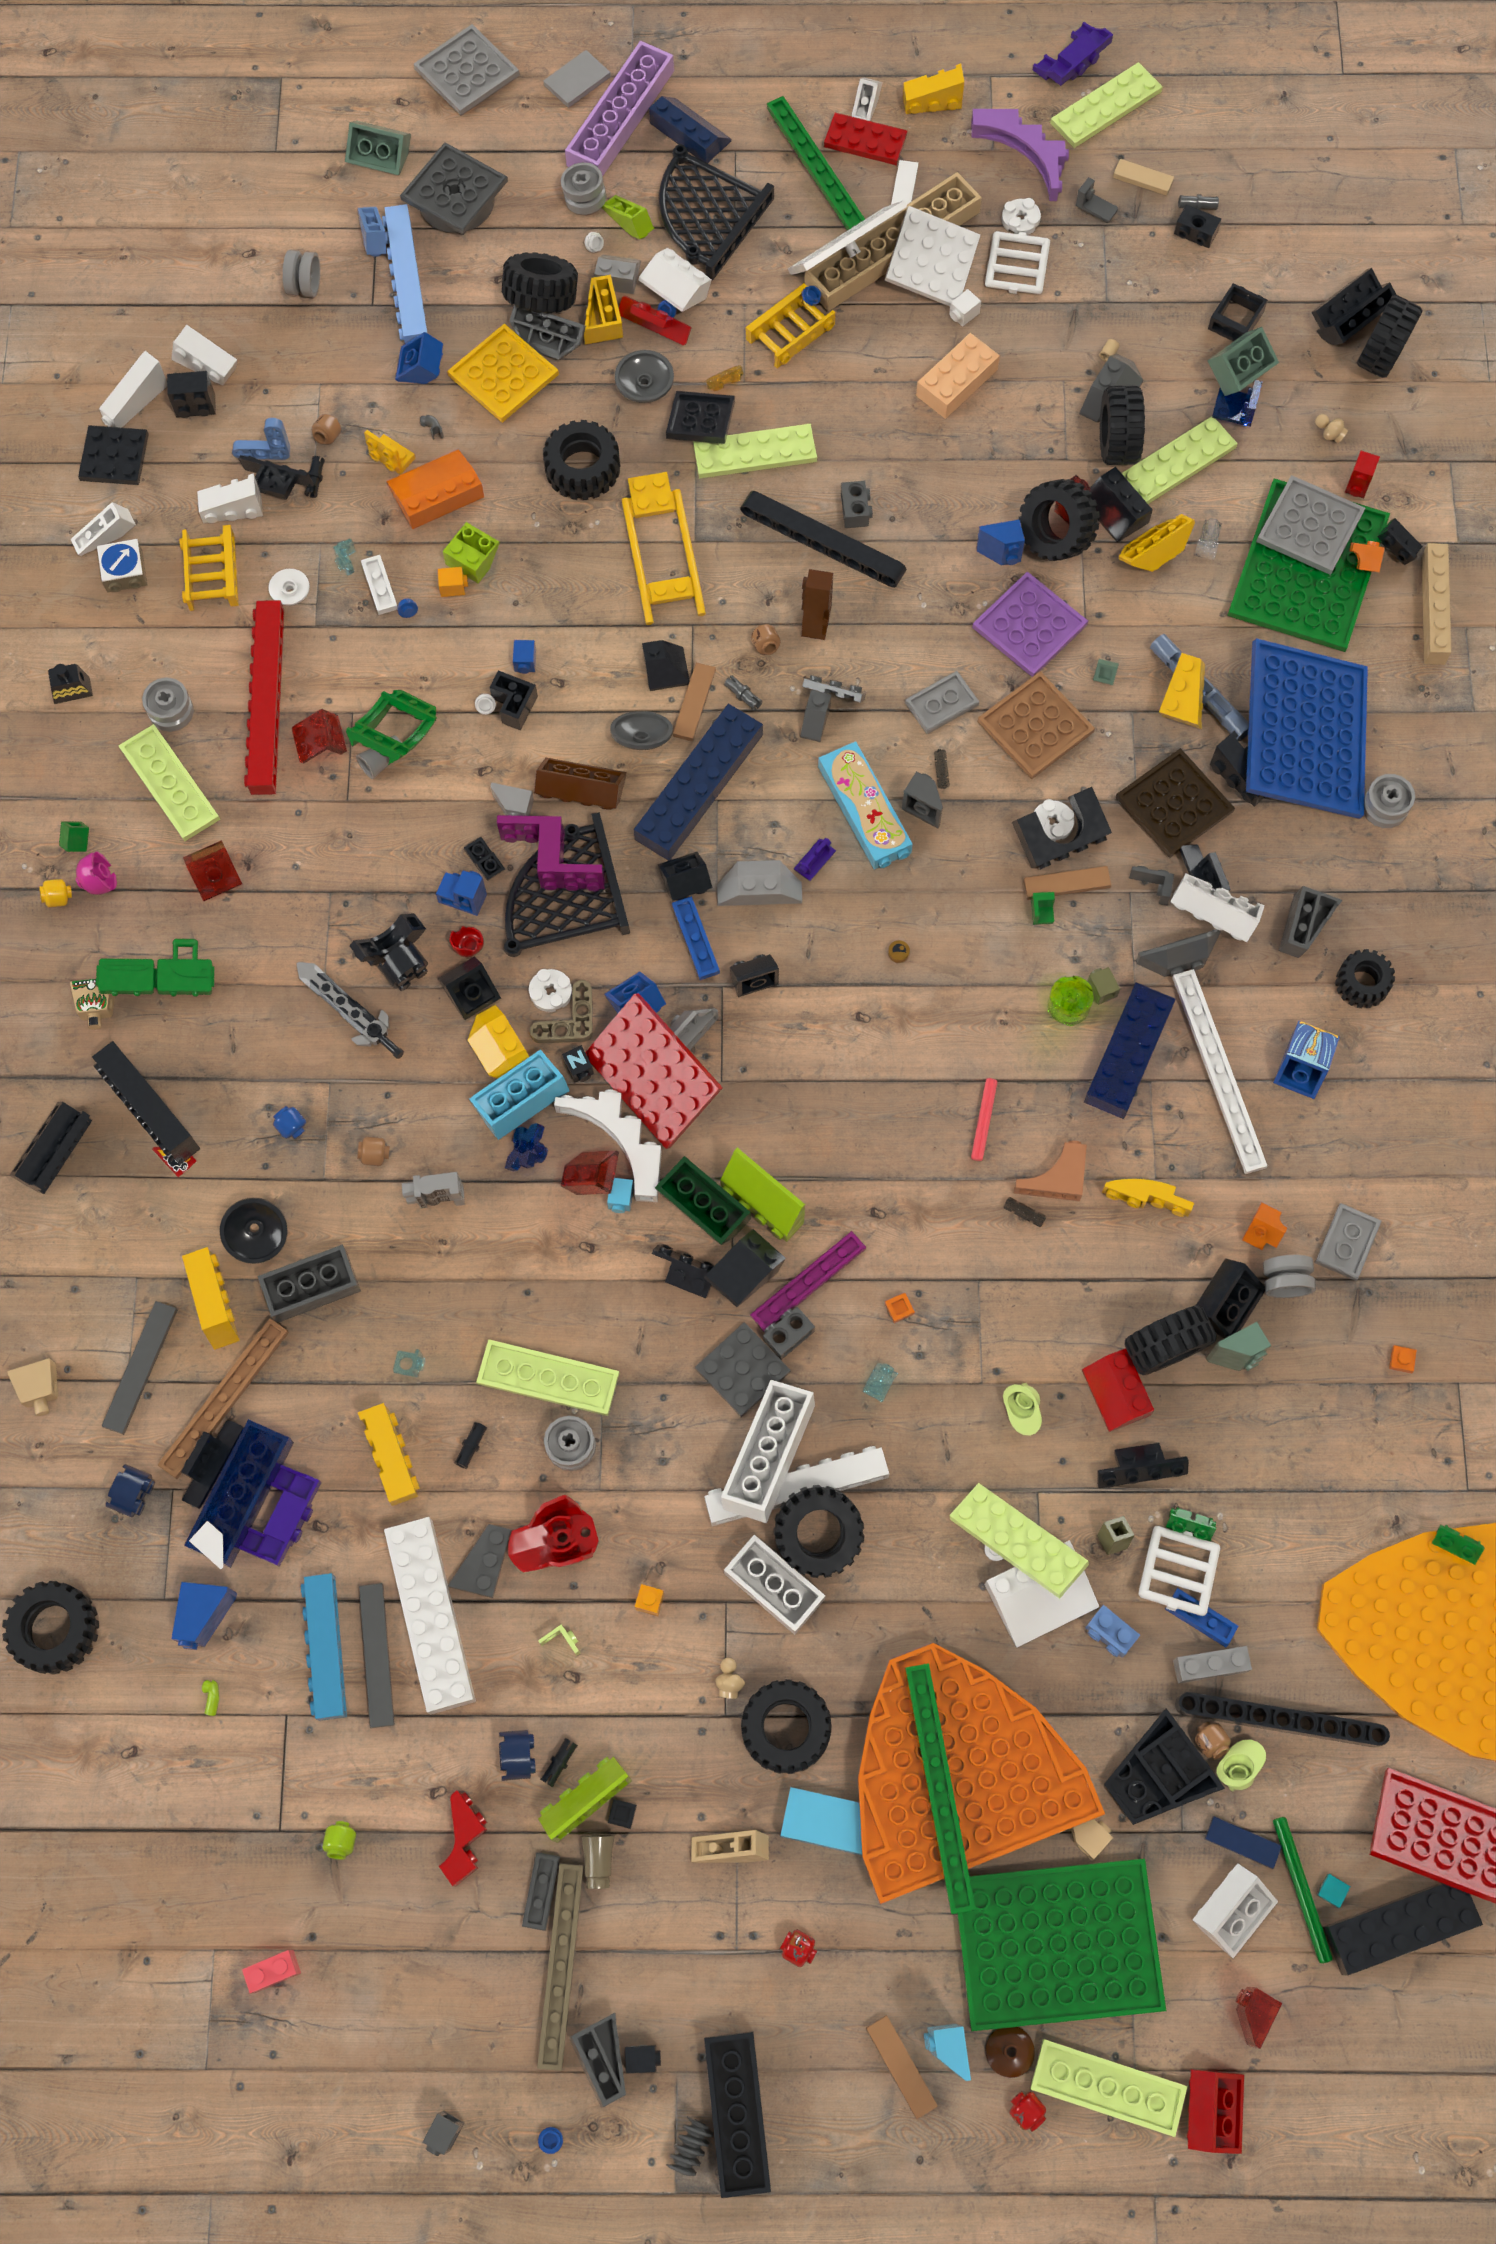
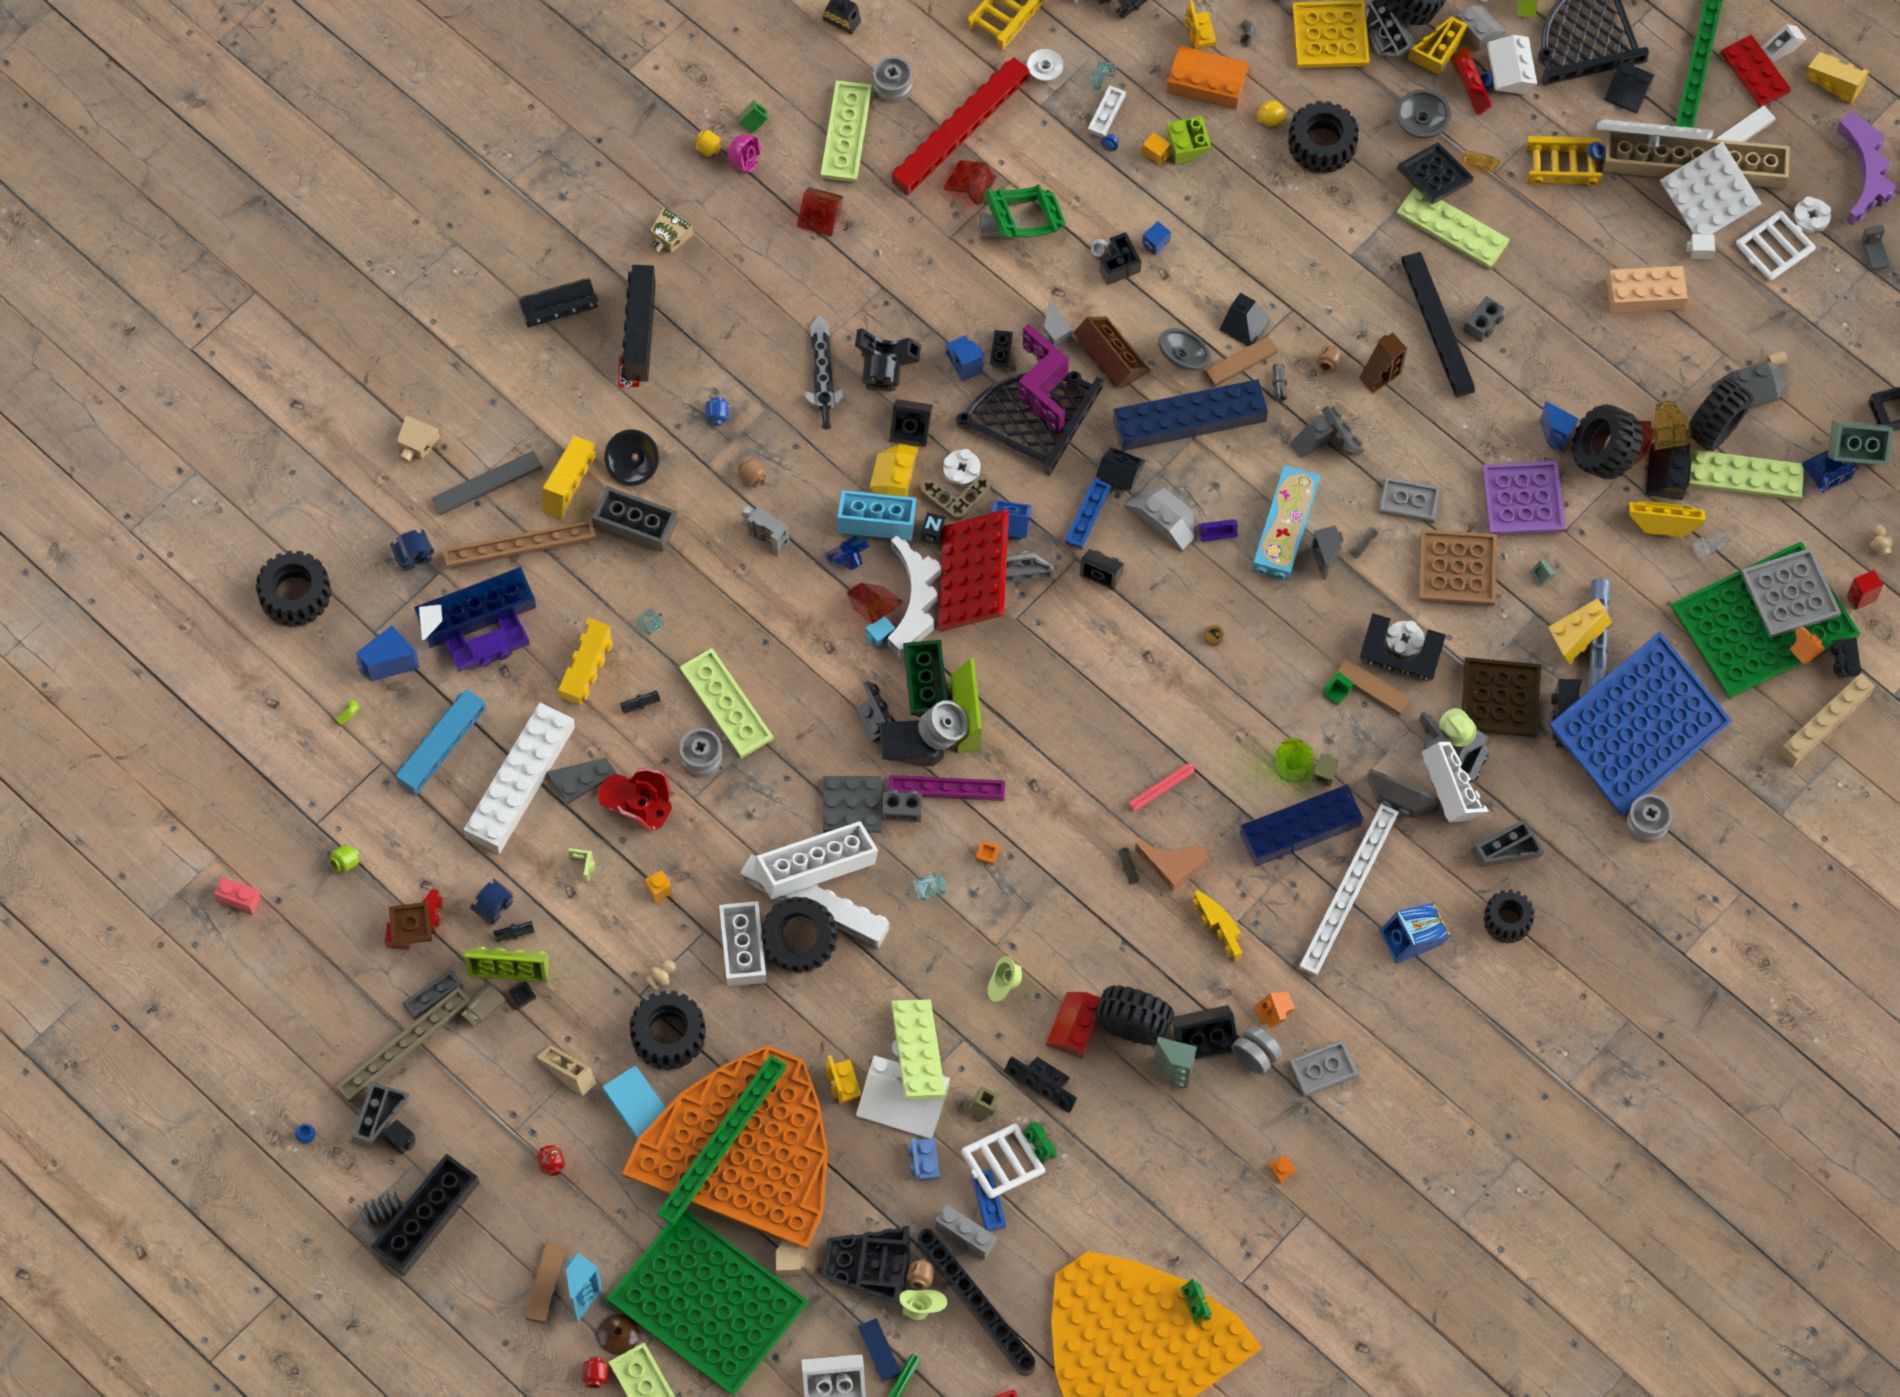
camera: 40 degrees right, 5 degrees down
(170, 977) = (728, 257): green piece -> none
(208, 1461) = (472, 571): black bracket -> none
(376, 1656) = (466, 775): dark grey tile -> none
(442, 2133) = (248, 1069): dark grey brick -> none
(463, 1849) = (410, 923): none -> reddish brown plate
(466, 941) = (937, 391): red hair -> none
(518, 477) = (1271, 114): none -> yellow hair
(651, 497) = (1348, 200): yellow plate -> none
(764, 1230) = (943, 725): none -> light grey wheel
(783, 226) = (1629, 87): none -> black slope
(977, 1626) = (844, 1081): none -> yellow bracket
(1093, 465) = (1670, 426): none -> clear yellow wedge
(1168, 856) = (1458, 727): none -> yellowish green piece

